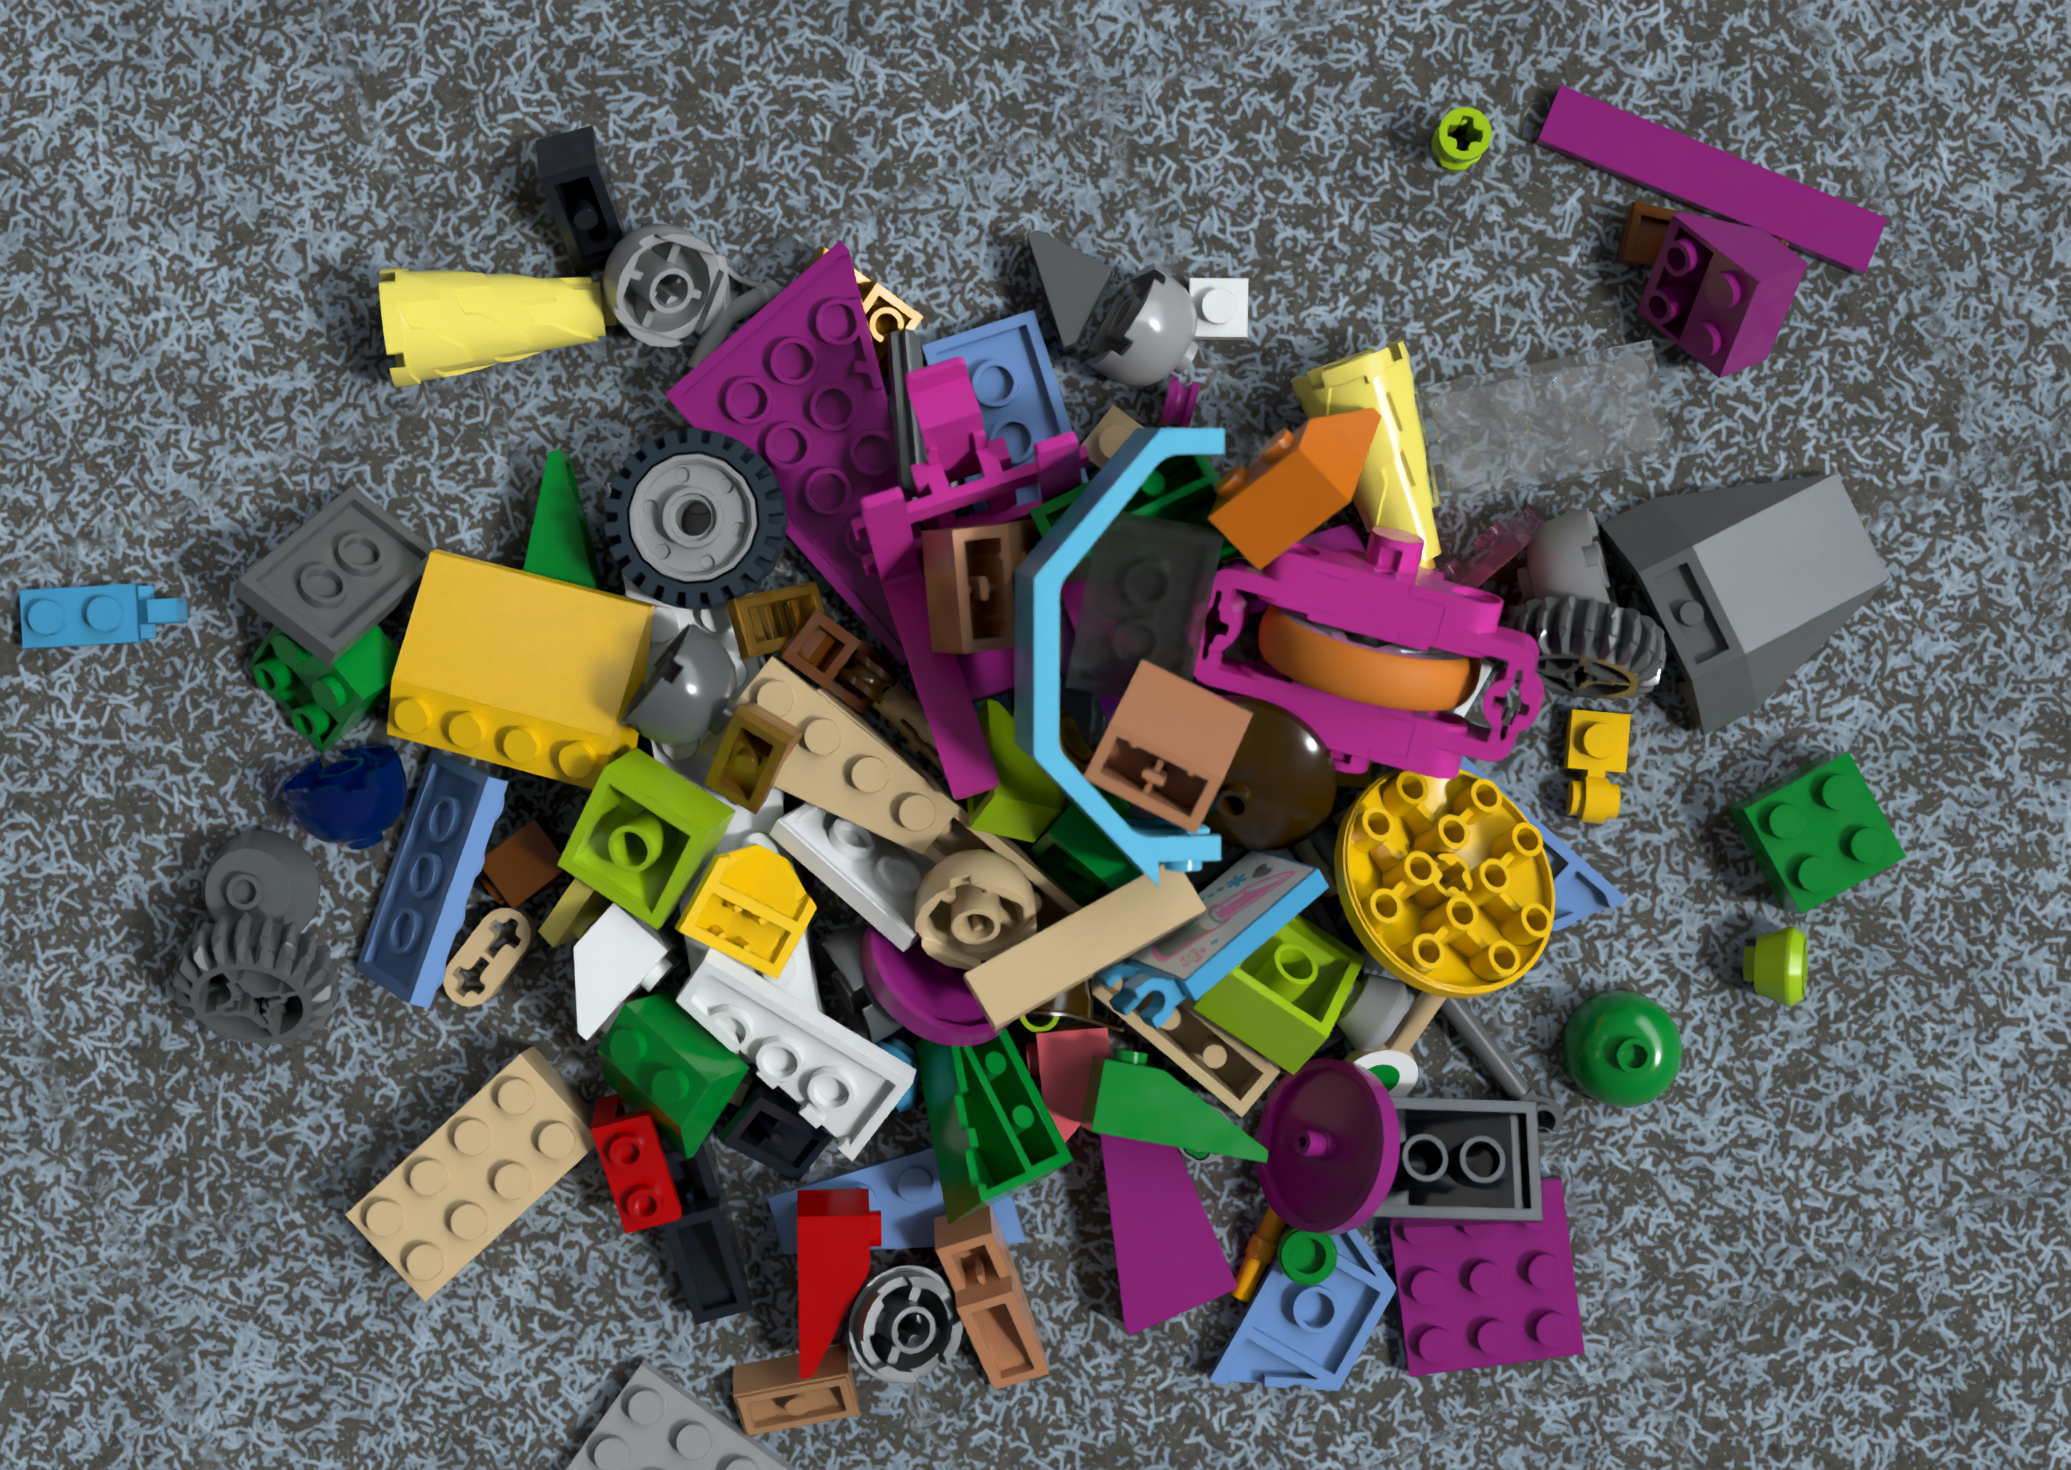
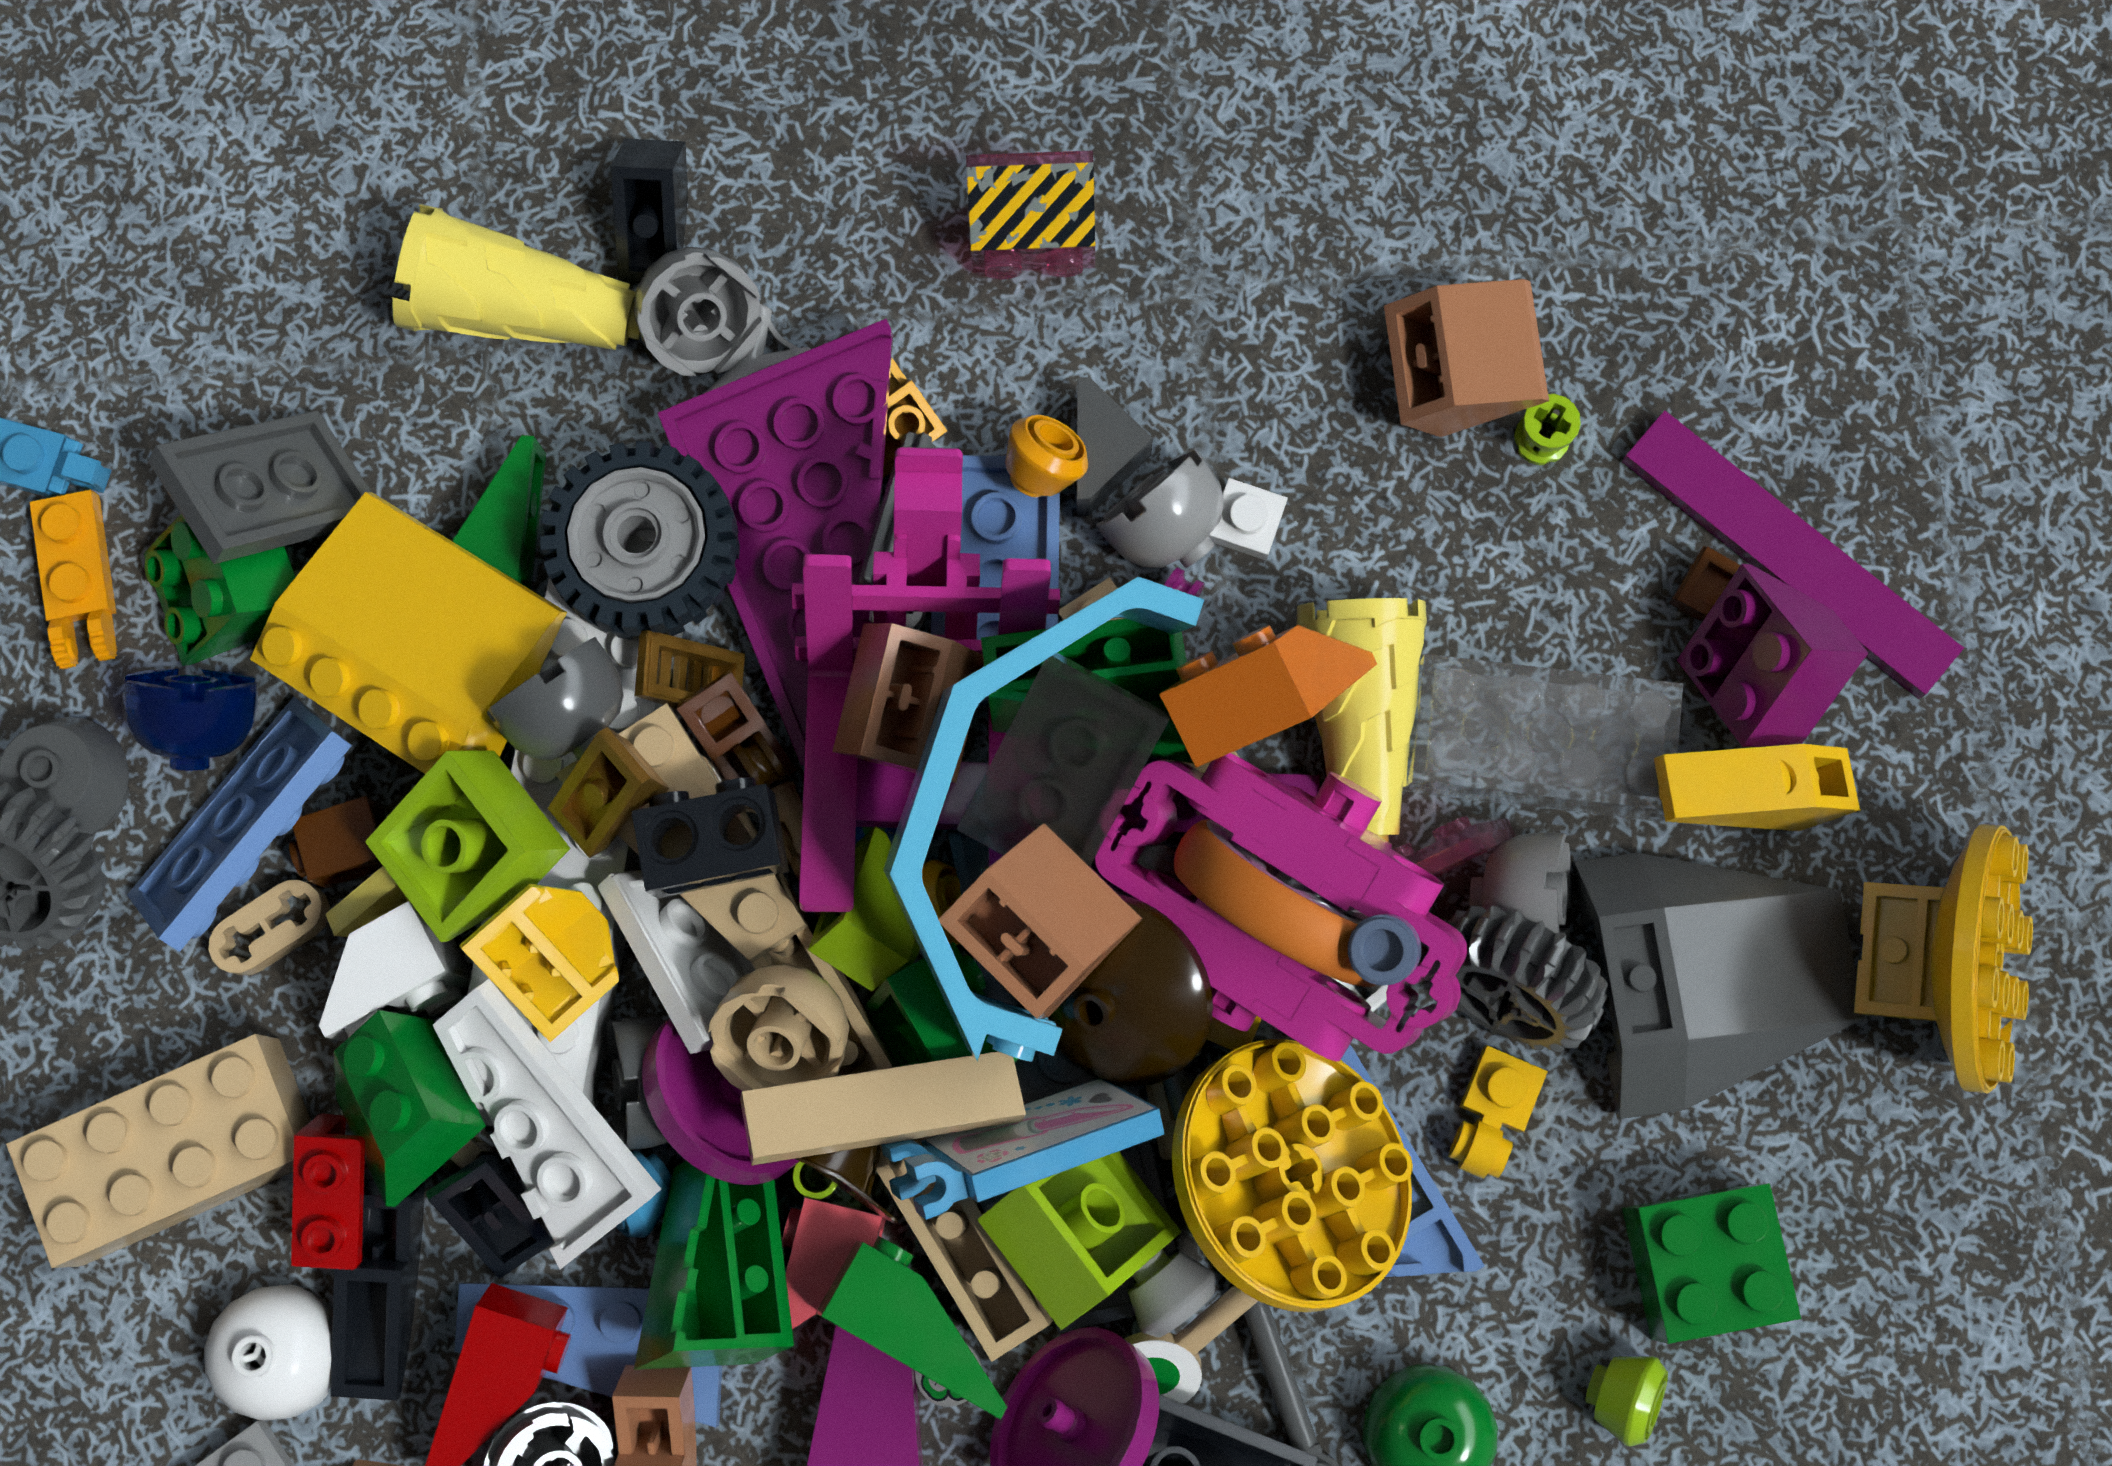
camera: 20 degrees right, 10 degrees down
(193, 704) = (74, 574): none -> light orange hinge
(635, 1280) = (297, 1340): none -> white cylinder
(863, 778) = (711, 857): none -> black brick
(934, 92) = (1031, 213): none -> slope
(1023, 318) = (1044, 456): none -> light orange cone
(1369, 96) = (1465, 355): none -> nougat slope
(1471, 676) = (1384, 949): none -> sand blue tile
(1742, 410) = (1758, 786): none -> yellow slope
(1943, 507) = (1943, 955): none -> yellow bracket

